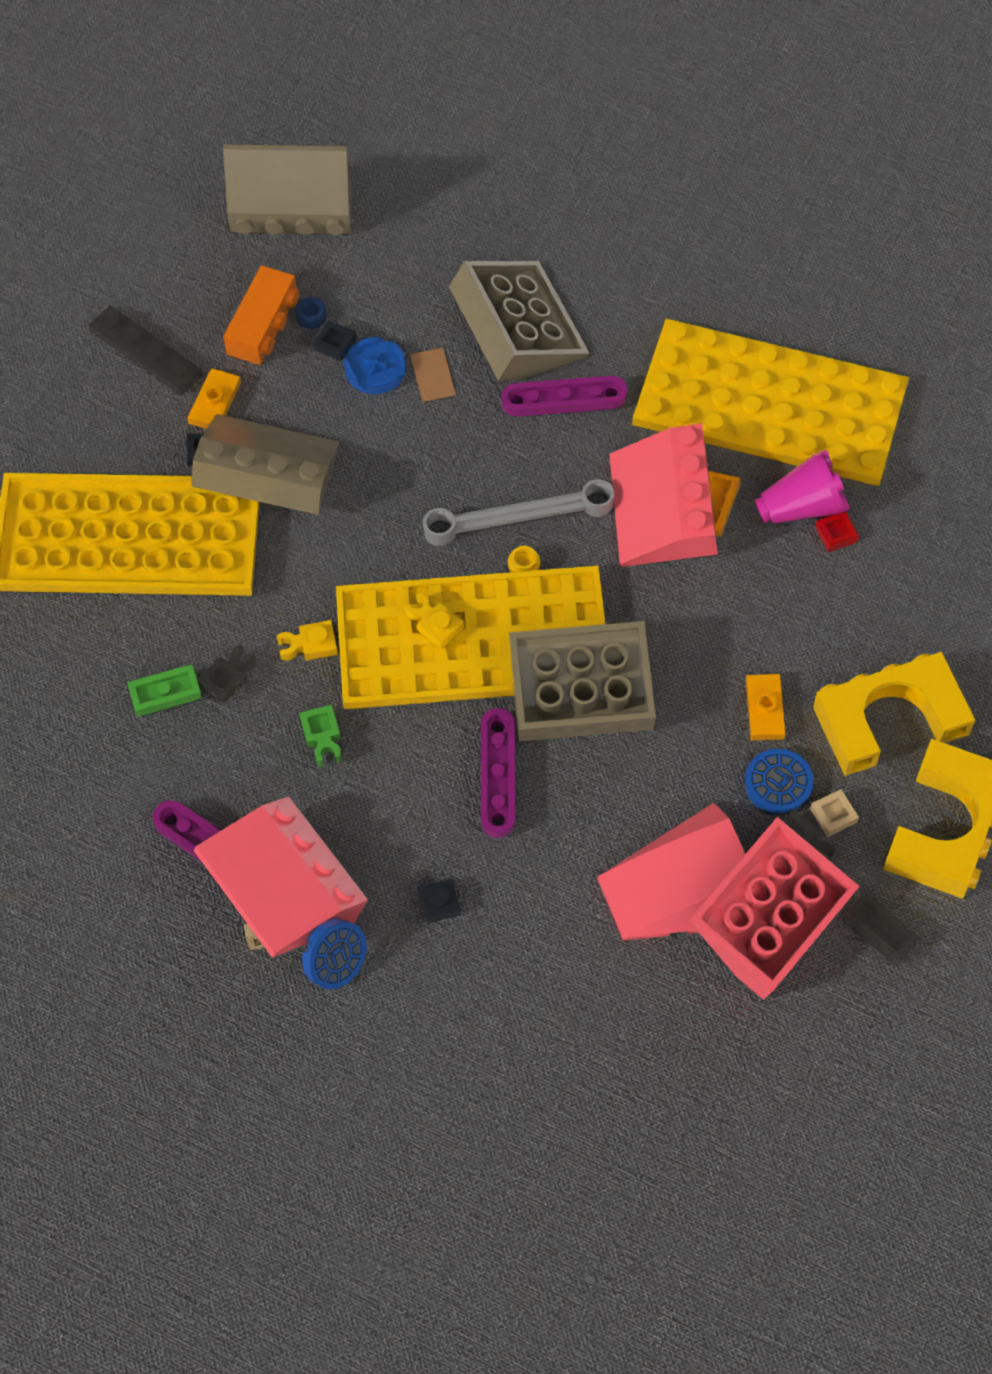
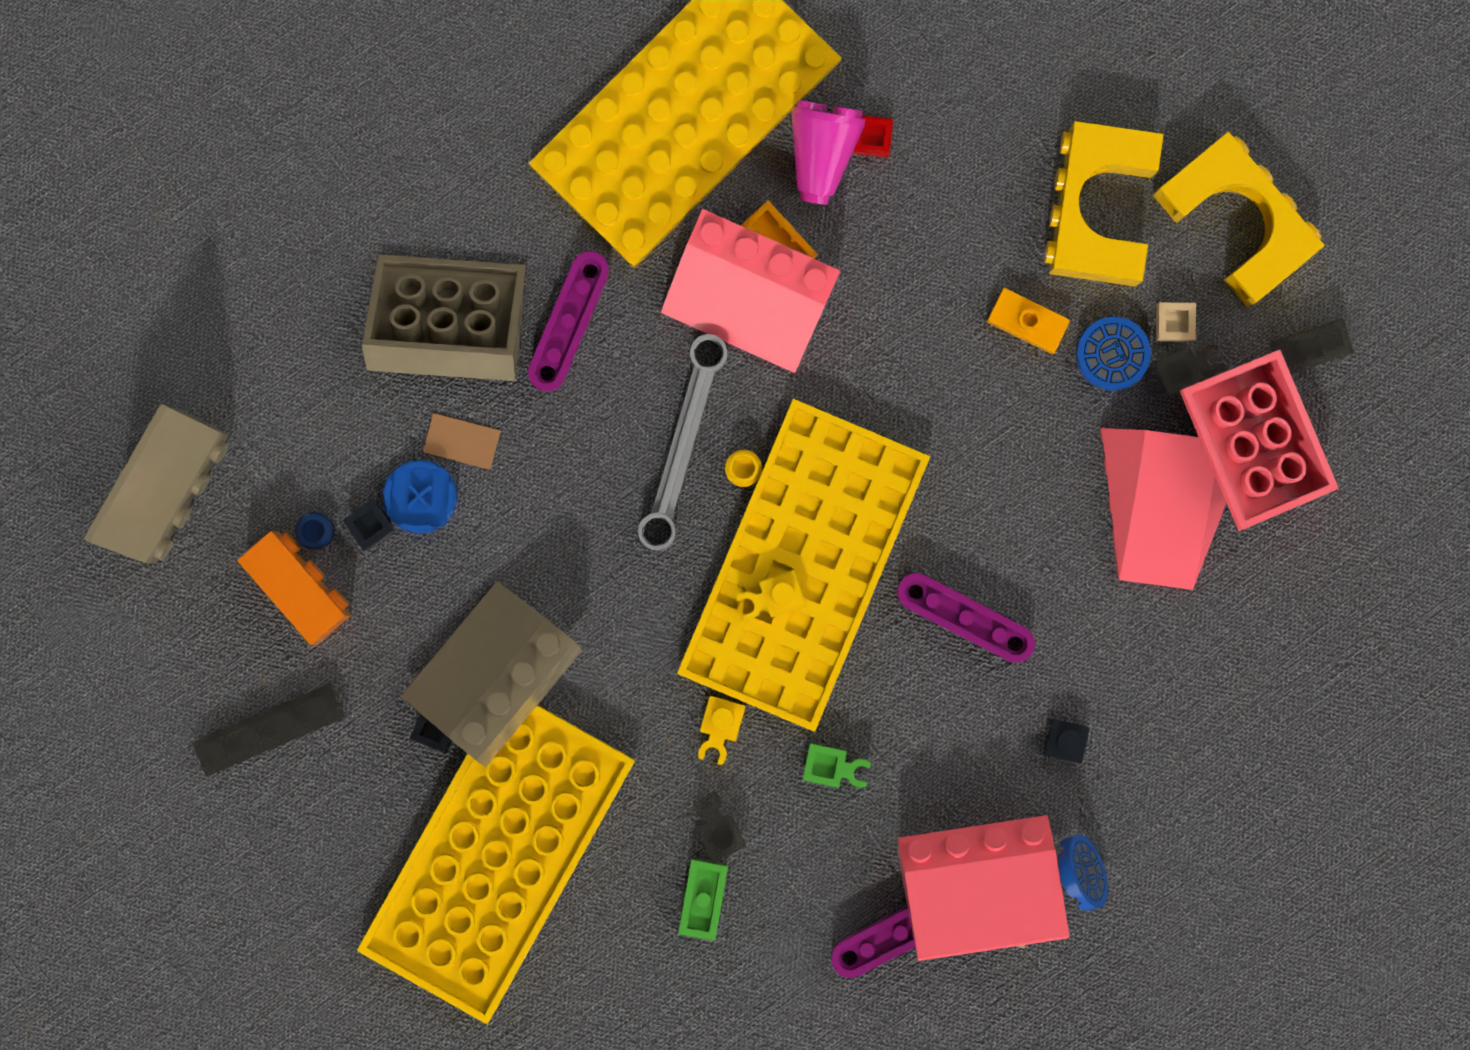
camera: 65 degrees left, 25 degrees up
(214, 397) = (373, 686): light orange plate -> none
(582, 681) = (925, 489): dark tan slope -> none

